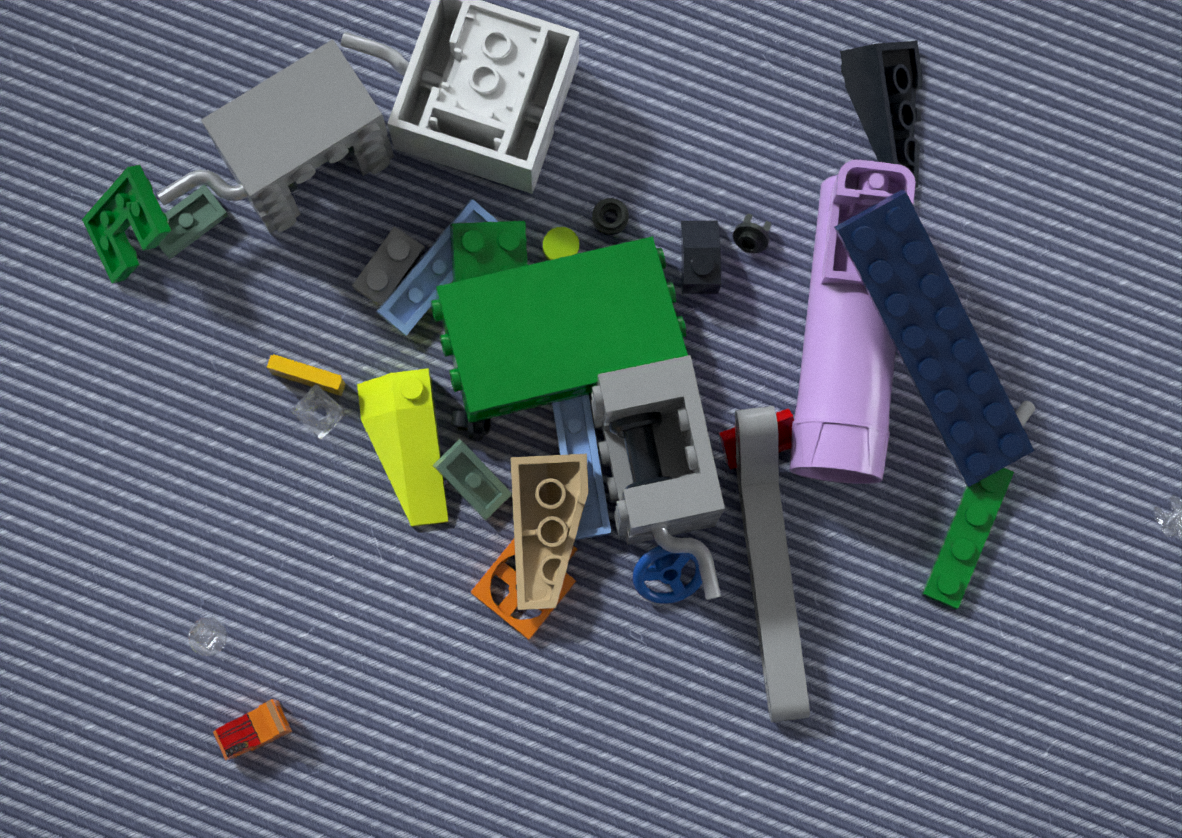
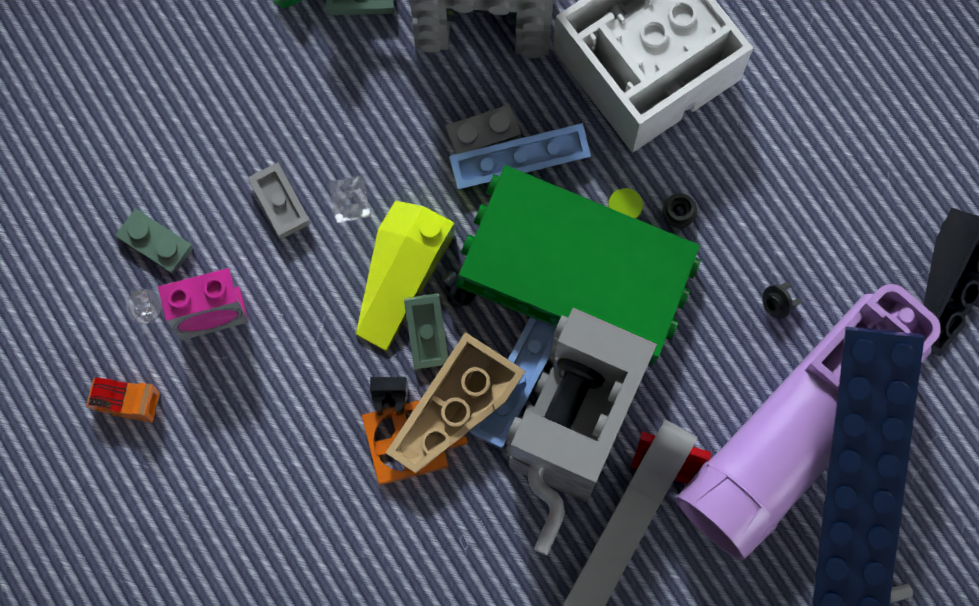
camera: 40 degrees right, 5 degrees down
(171, 574) = (154, 241): none -> sand green plate
(255, 458) = (279, 200): none -> light grey plate
(264, 597) = (203, 304): none -> dark pink panel
(306, 374) = (362, 165): yellow tile -> none
(479, 552) = (389, 390): none -> black tile
(487, 248) = (567, 165): green plate -> none
(666, 568) = (523, 506): blue piece -> none
(700, 257) = (726, 289): black slope -> none

